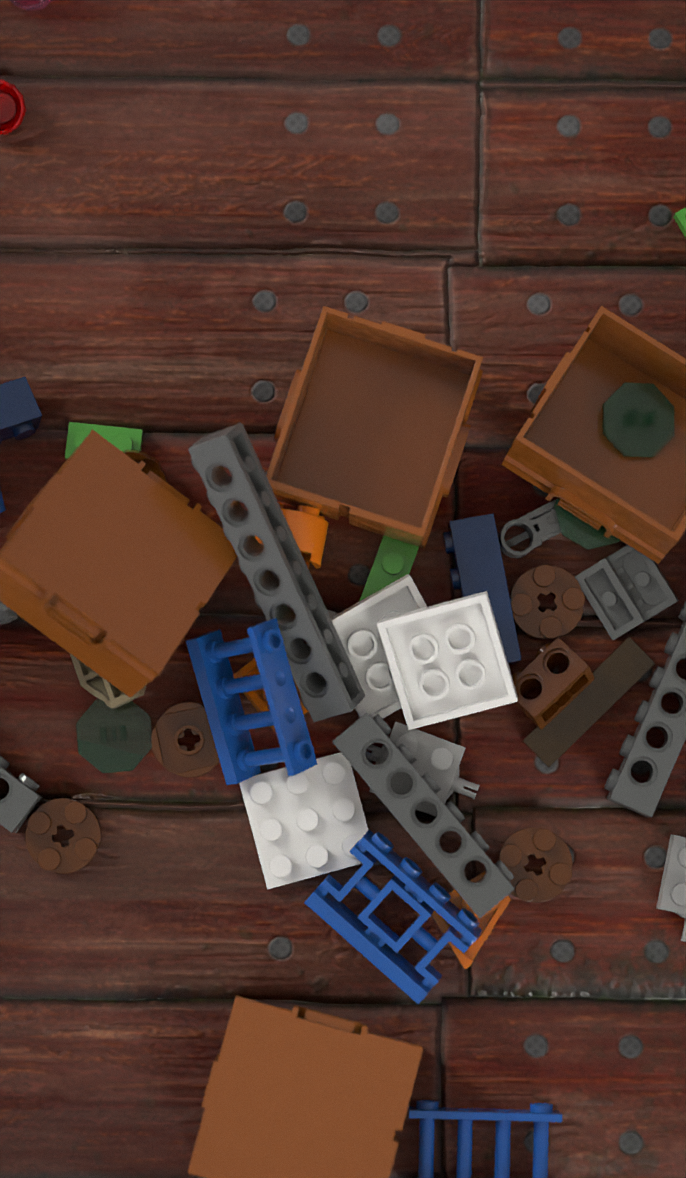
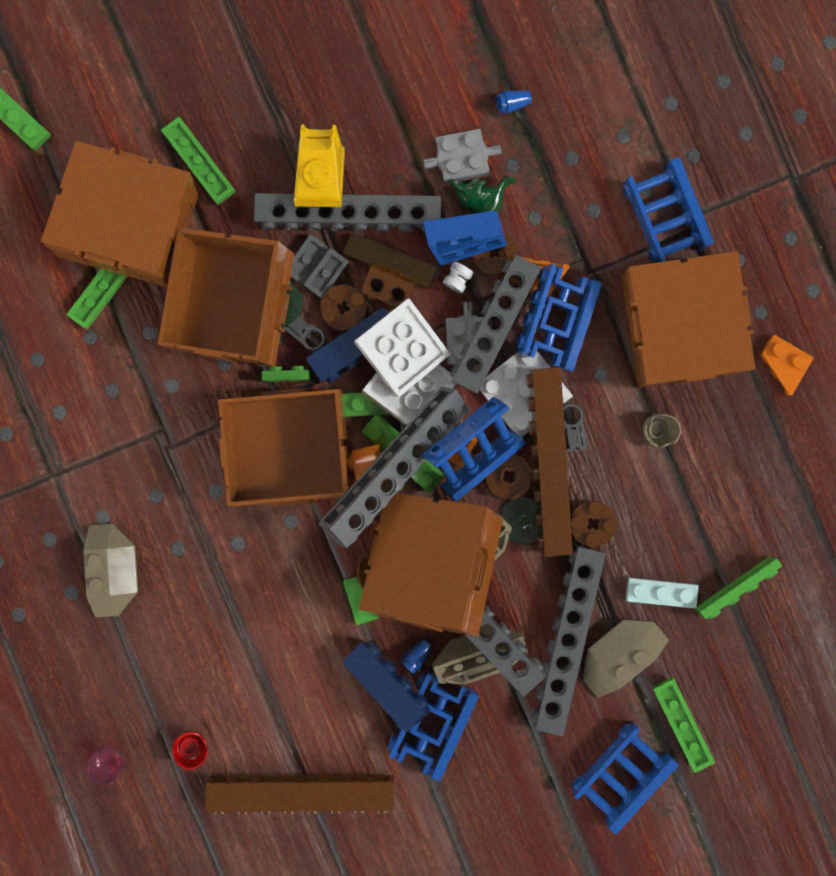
camera: 110 degrees left, 5 degrees up
(158, 999) = (661, 430): none -> dark tan hair
(183, 809) = (550, 461): none -> reddish brown brick
(214, 866) = (574, 432): none -> dark grey piece
(307, 102) = (109, 570): none -> dark tan wedge
(333, 580) = (383, 433): none -> bright green plate
(477, 491) = (276, 374): none -> bright green plate
(517, 783) = (458, 277): none -> white wheel
(576, 825) = (464, 236): none -> blue wedge
(621, 879) = (479, 197): none -> dark green piece
(638, 420) = (215, 299): clear green piece -> none

